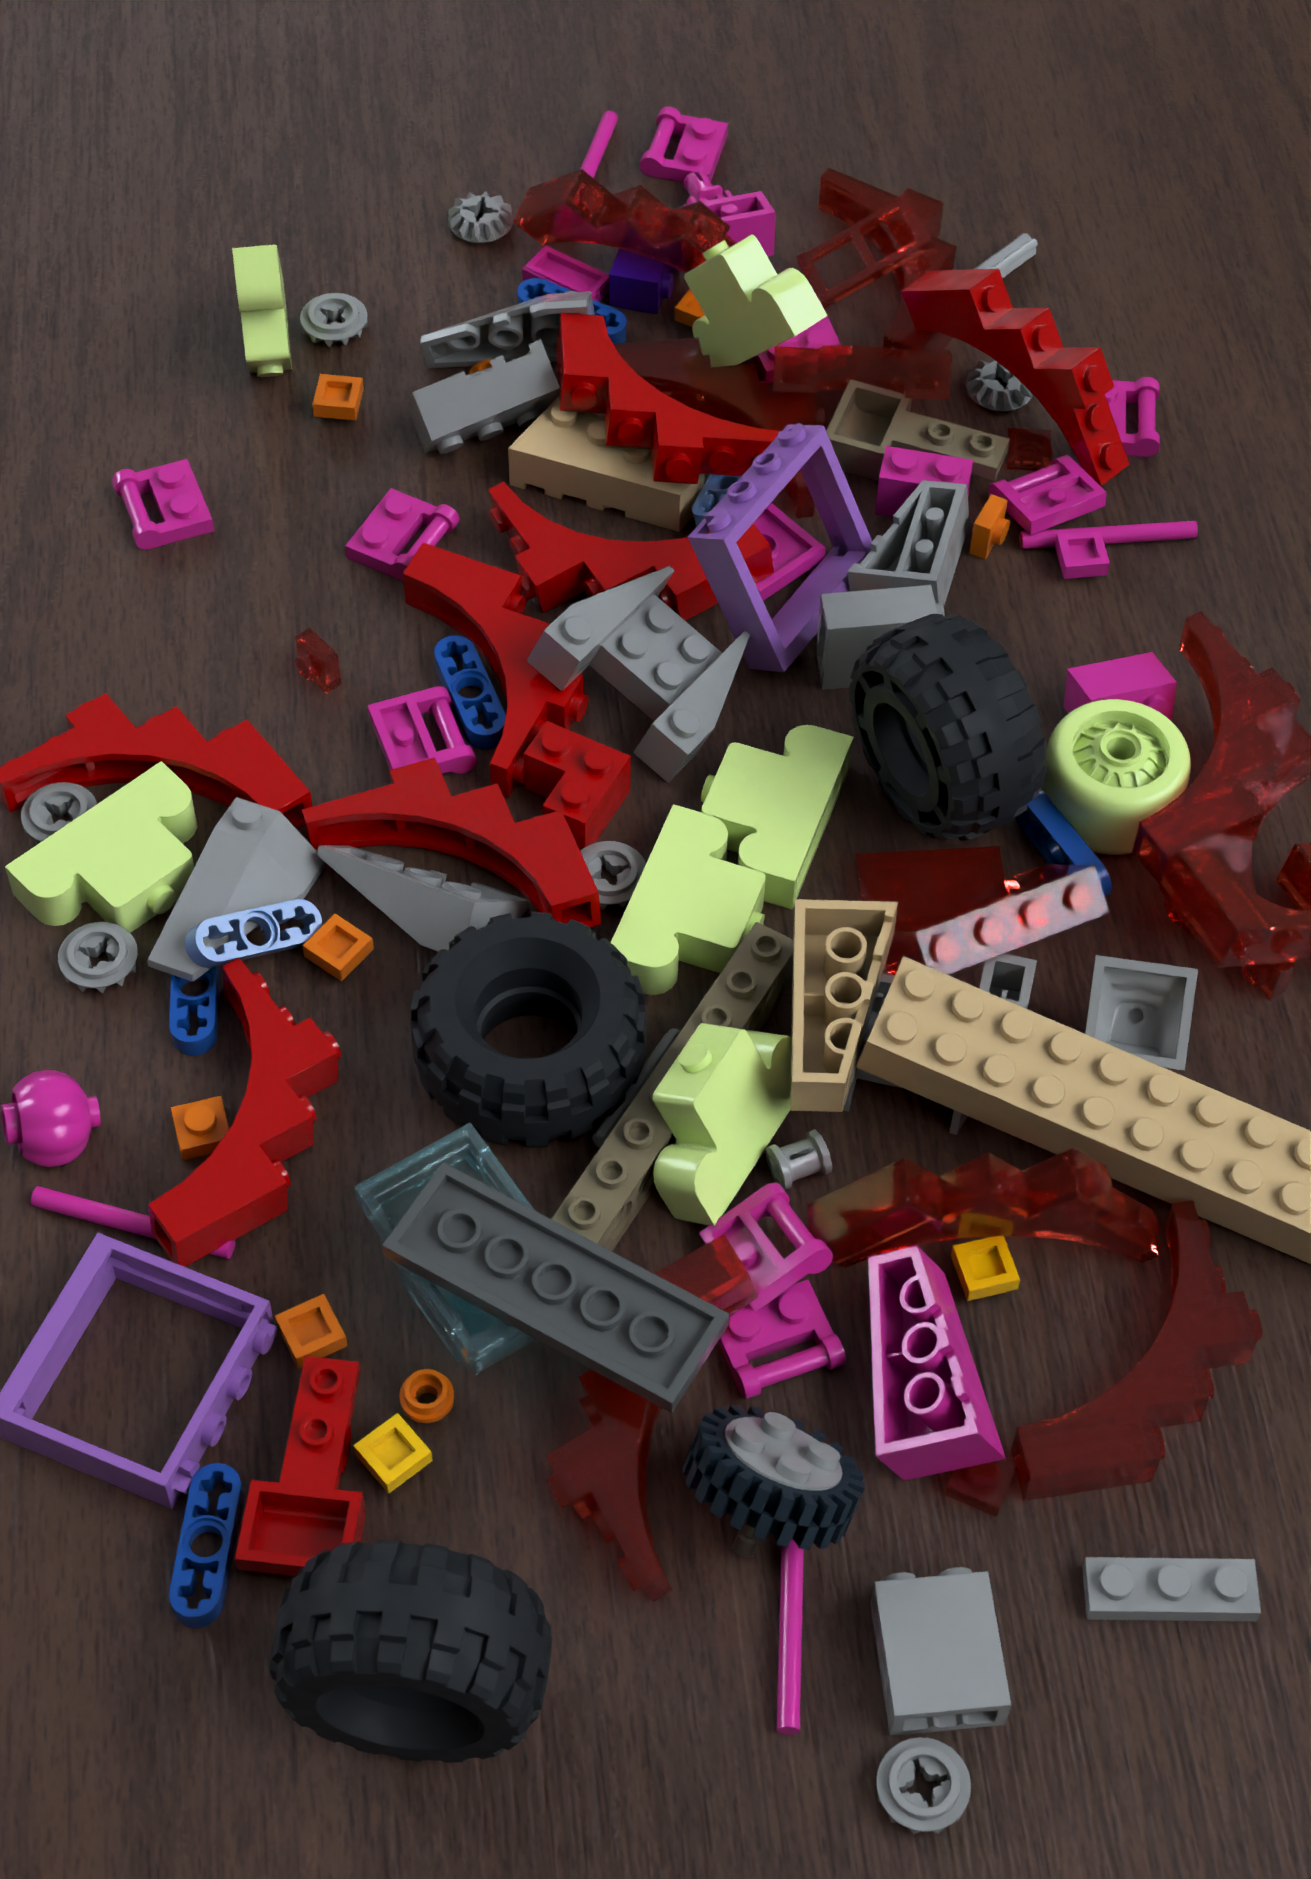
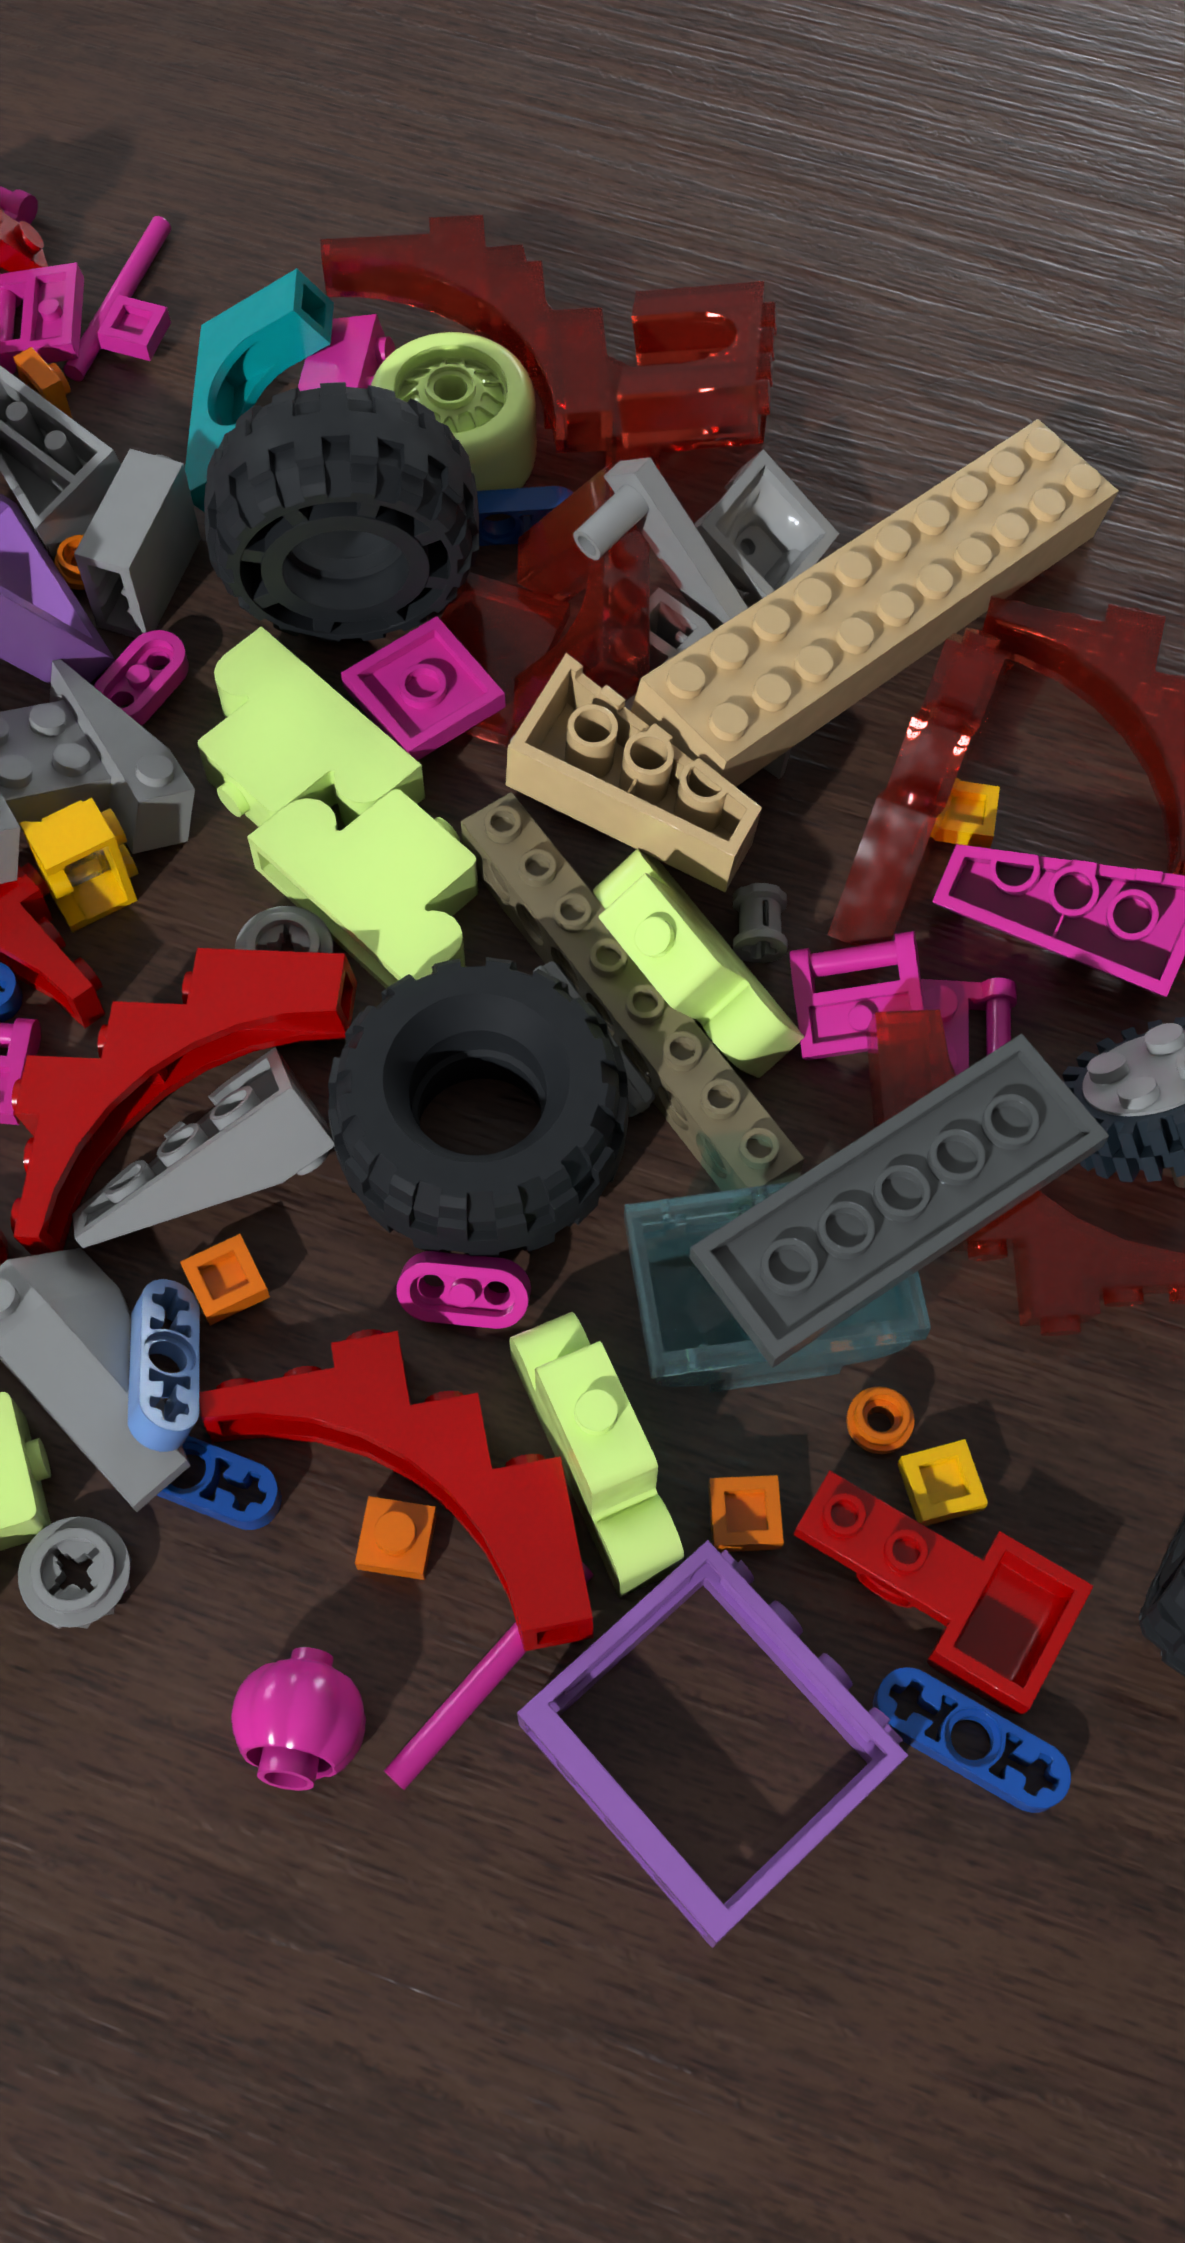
camera: 65 degrees left, 10 degrees up
(302, 1206) = (600, 1450): none -> yellowish green brick
(397, 1088) = (465, 1292): none -> dark pink plate
(578, 778) = (138, 918): red brick -> none
(599, 709) = (83, 861): none -> yellow window
(777, 694) = (135, 682): none -> dark pink plate
(864, 856) = (423, 689): none -> dark pink plate
(1071, 894) = (648, 501): none -> light grey piece
(1088, 624) = (243, 355): none -> teal arch

